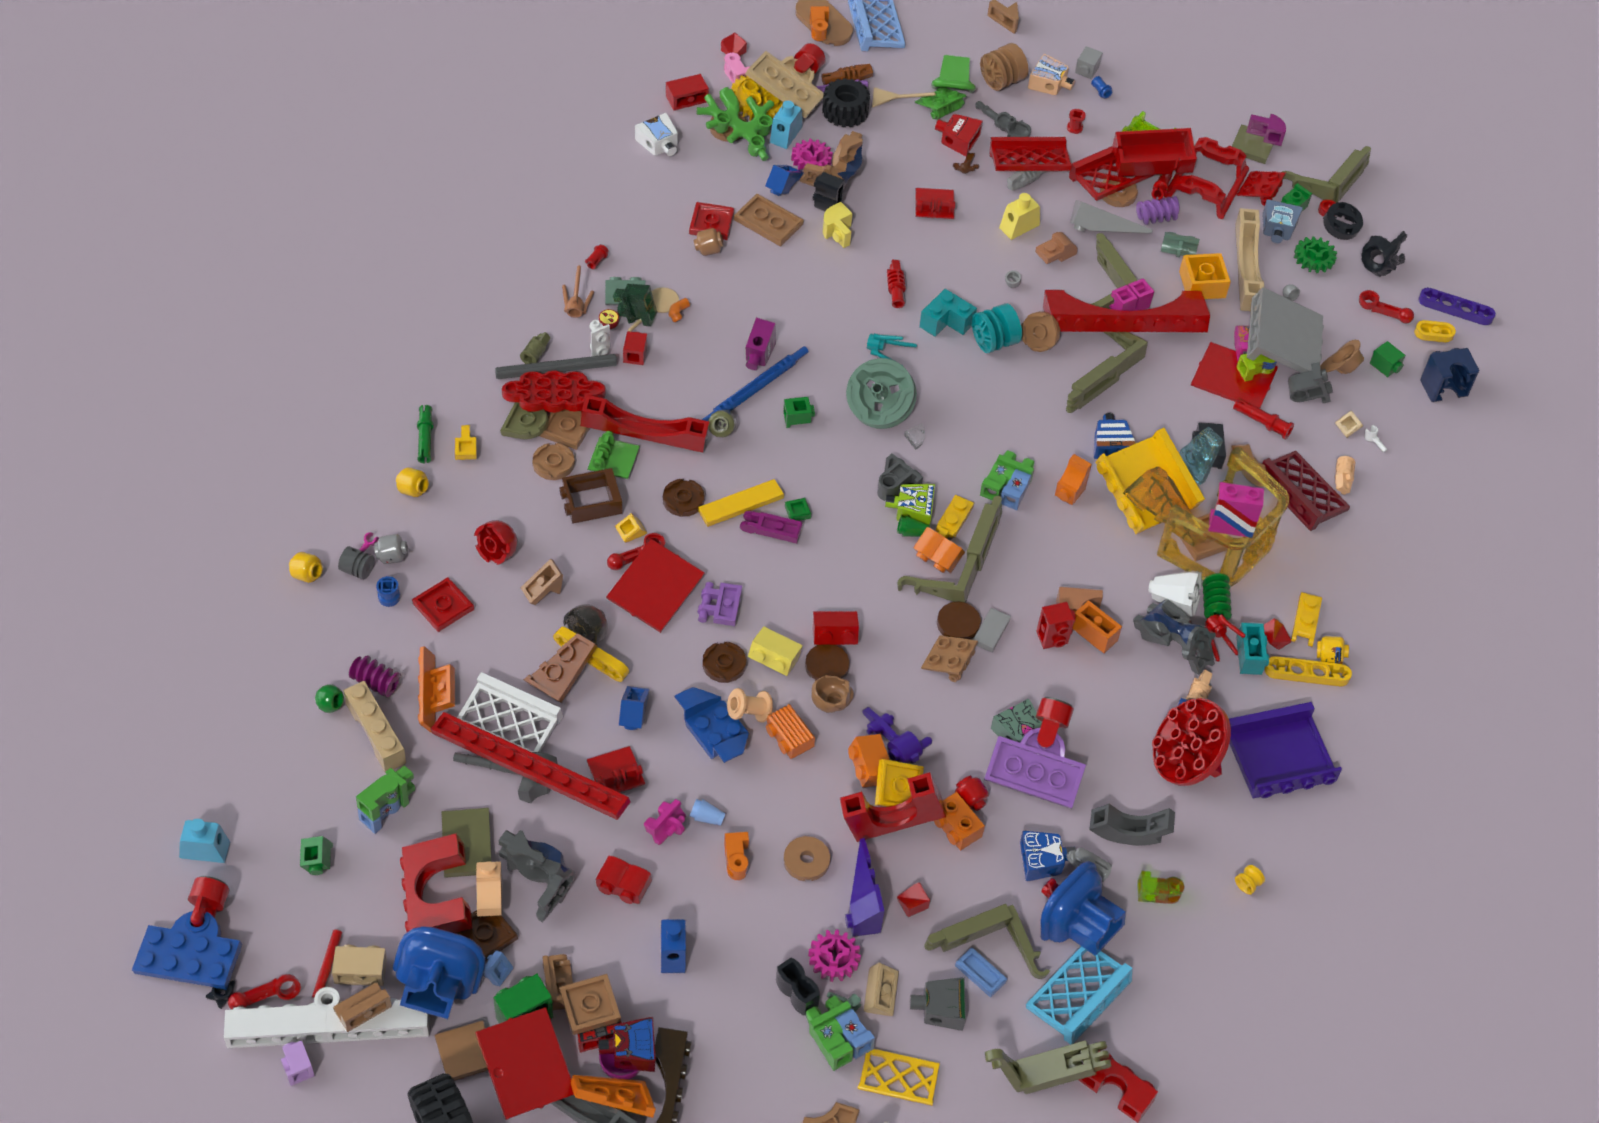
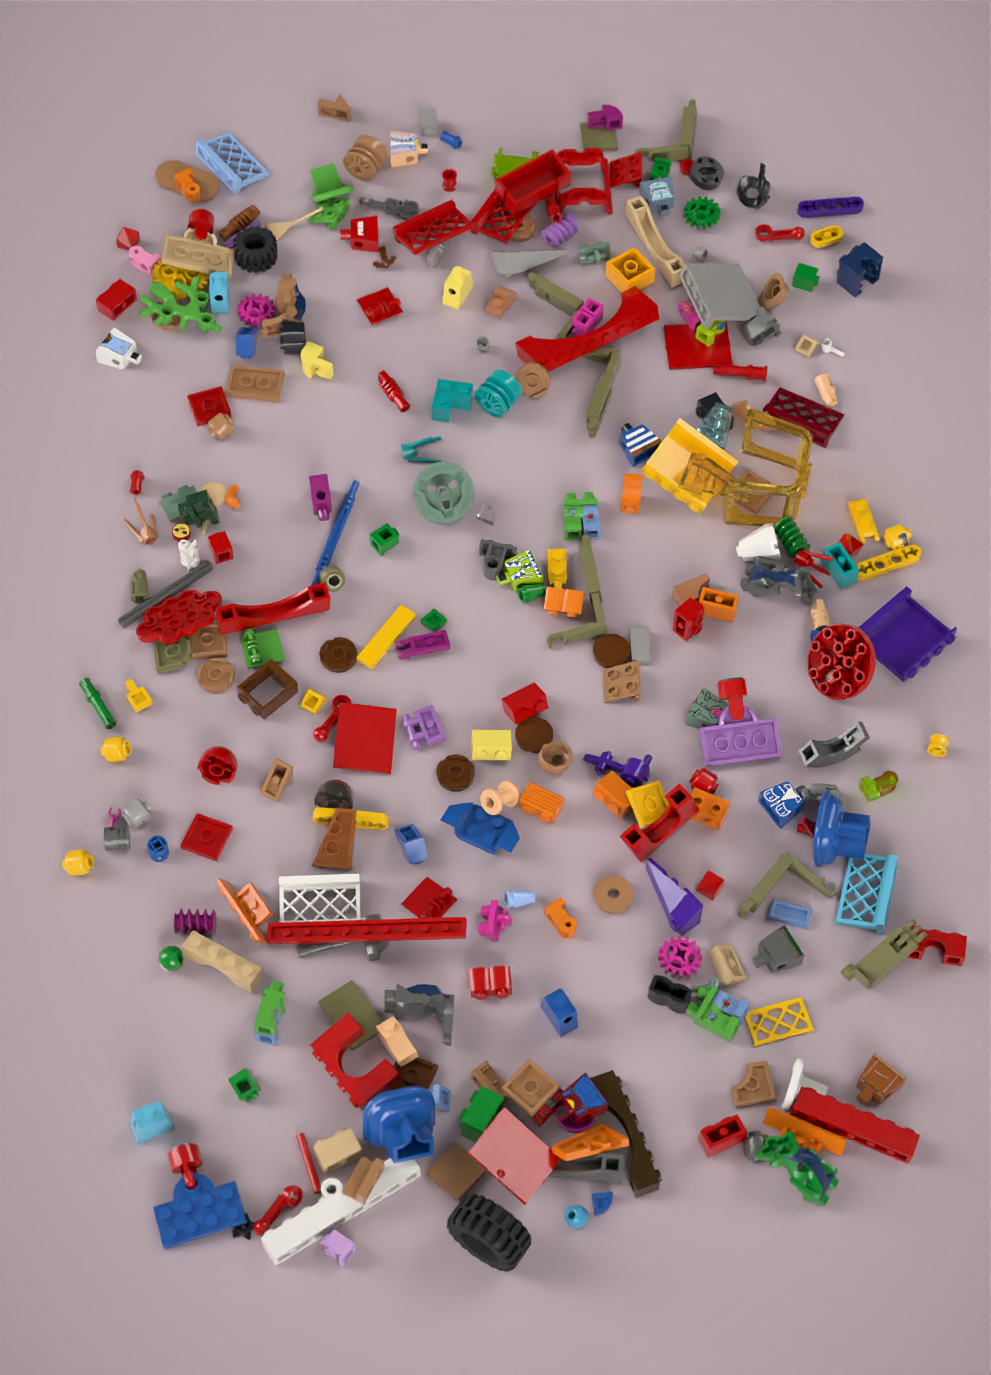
camera: 25 degrees left, 5 degrees up
(1236, 510) = (785, 463): dark pink panel -> none

